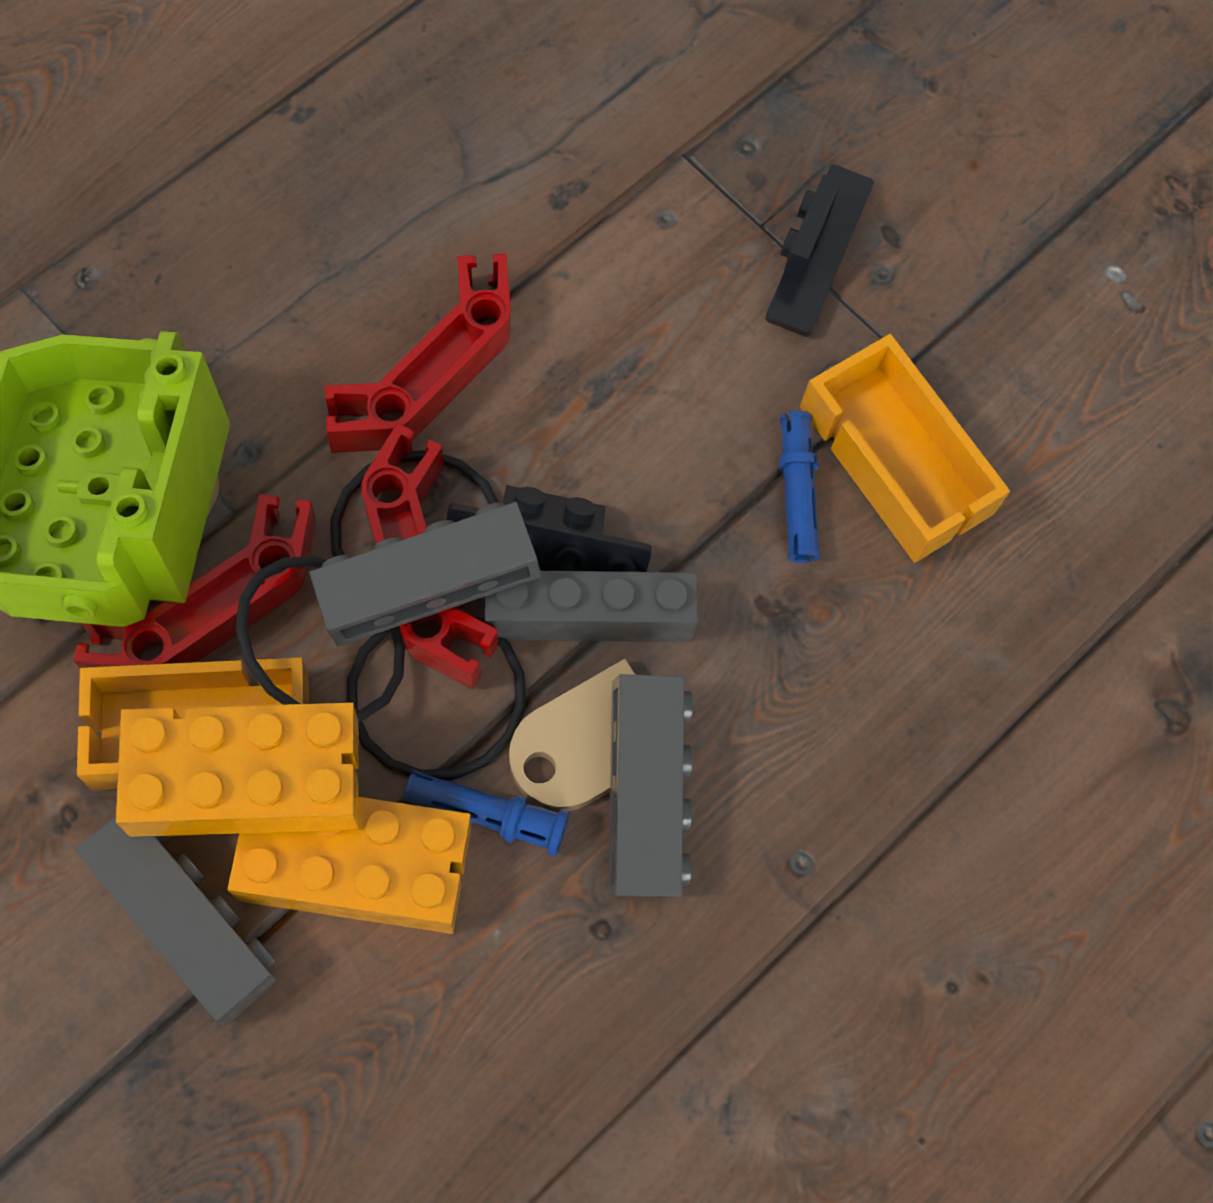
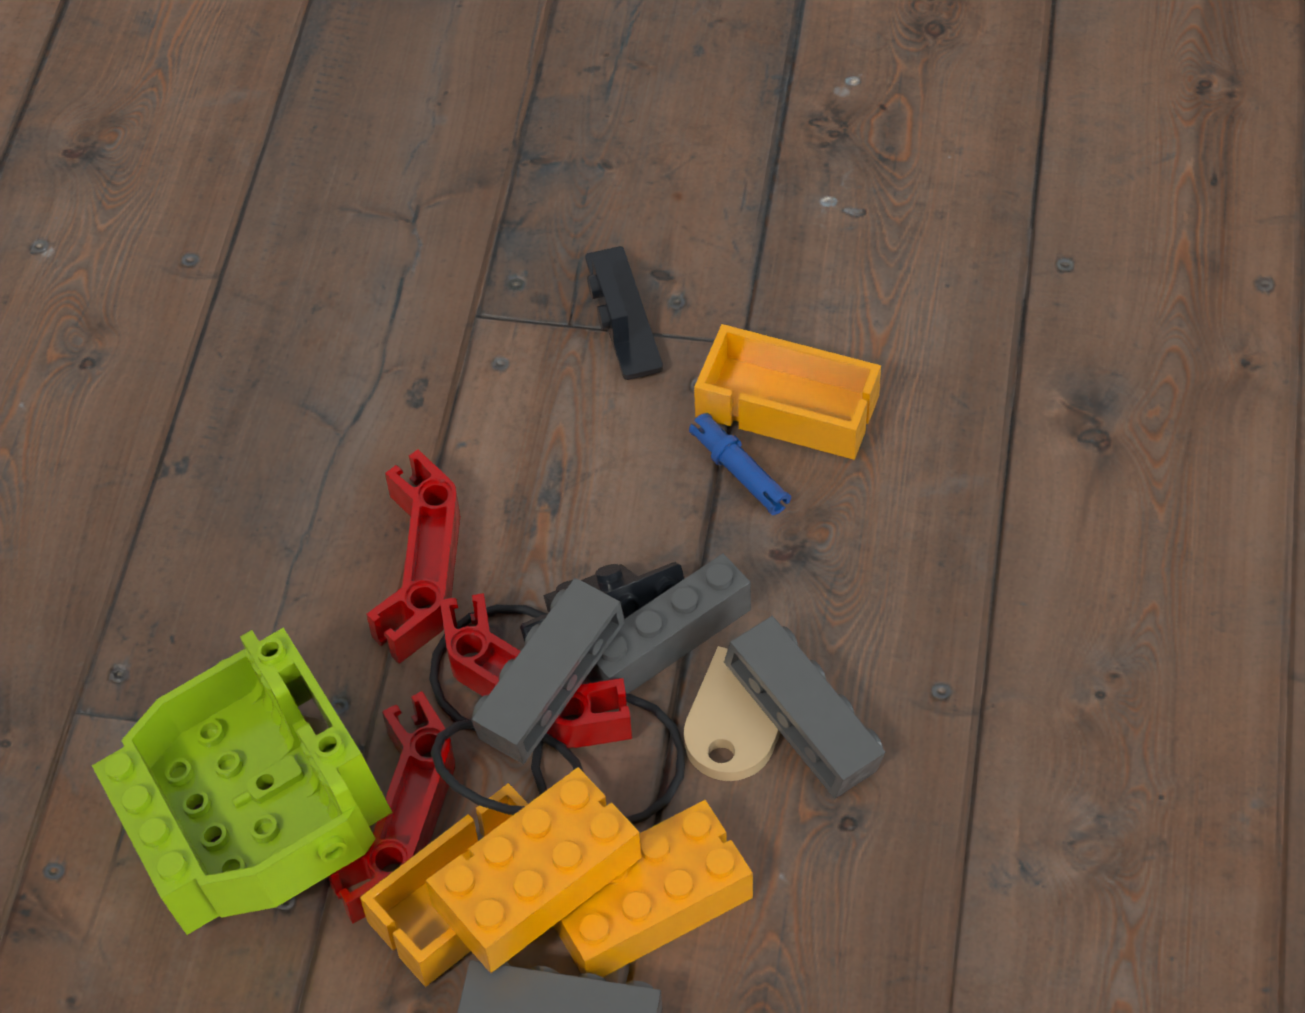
camera: 25 degrees left, 15 degrees down
(510, 817) = (730, 794): blue pin -> none

